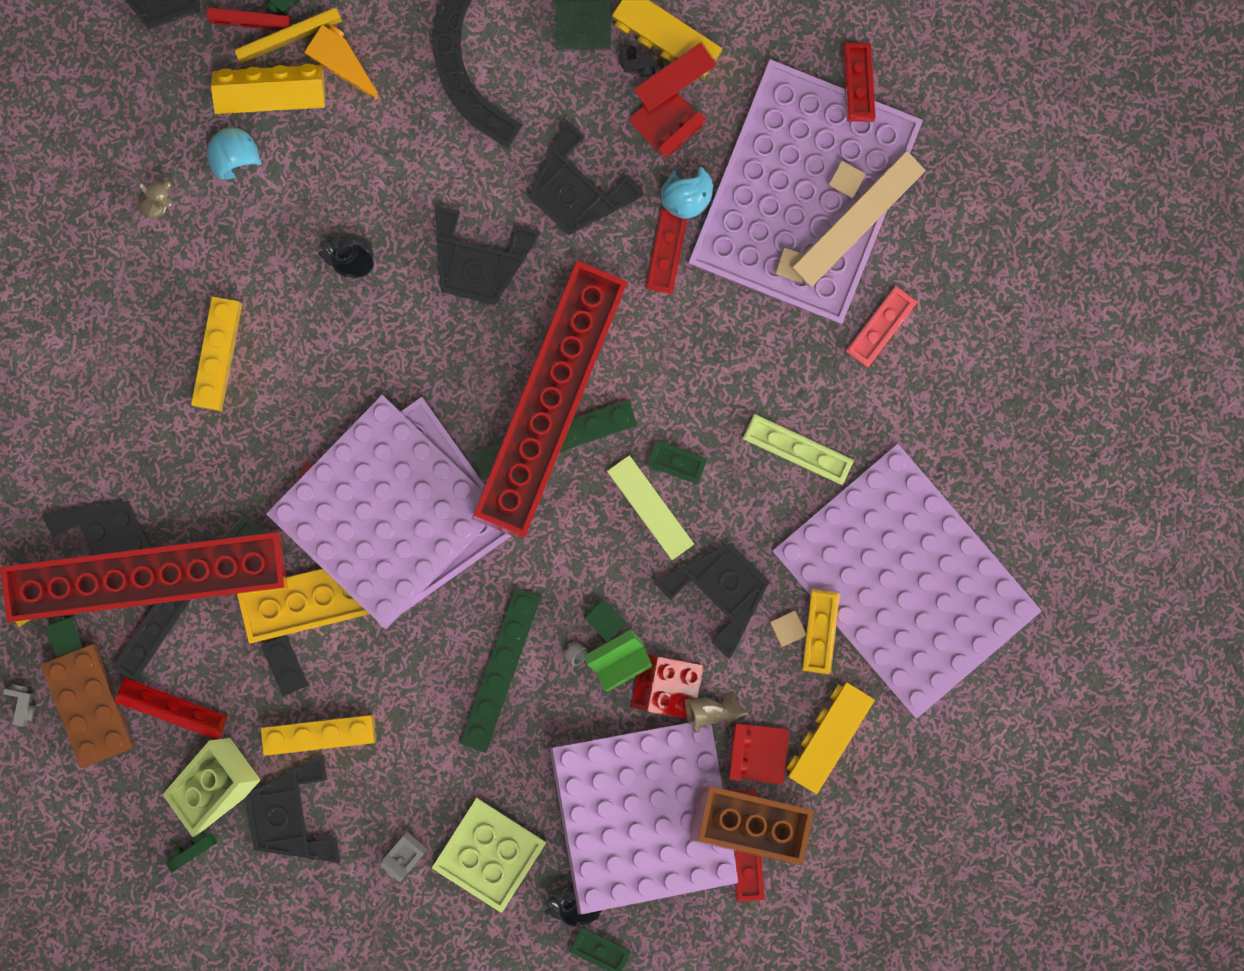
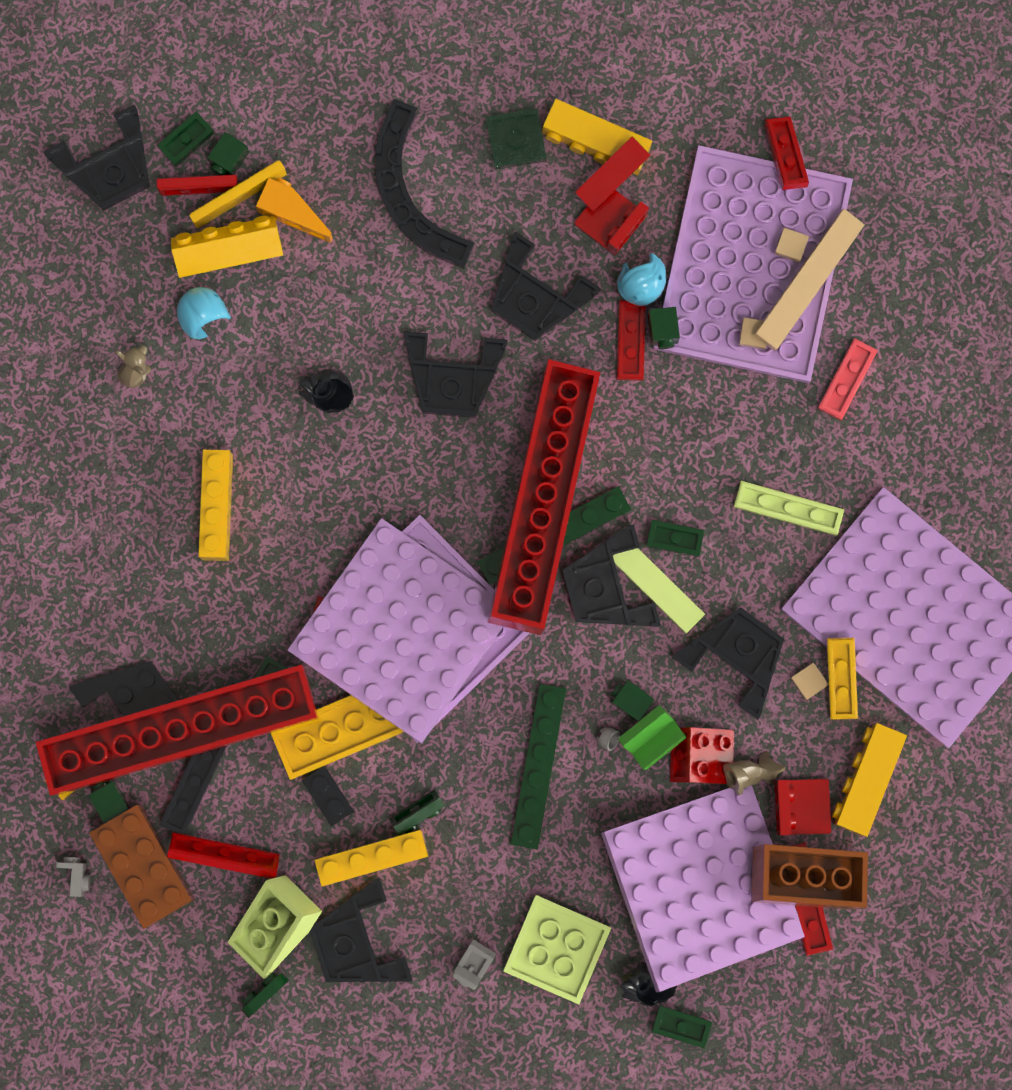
camera: 10 degrees left, 5 degrees down
(379, 693) = (425, 807): none -> dark green plate
(588, 499) = (596, 588): none -> black wing
(643, 66) = (580, 169): black bracket -> none
(700, 245) = (663, 327): none -> dark green brick

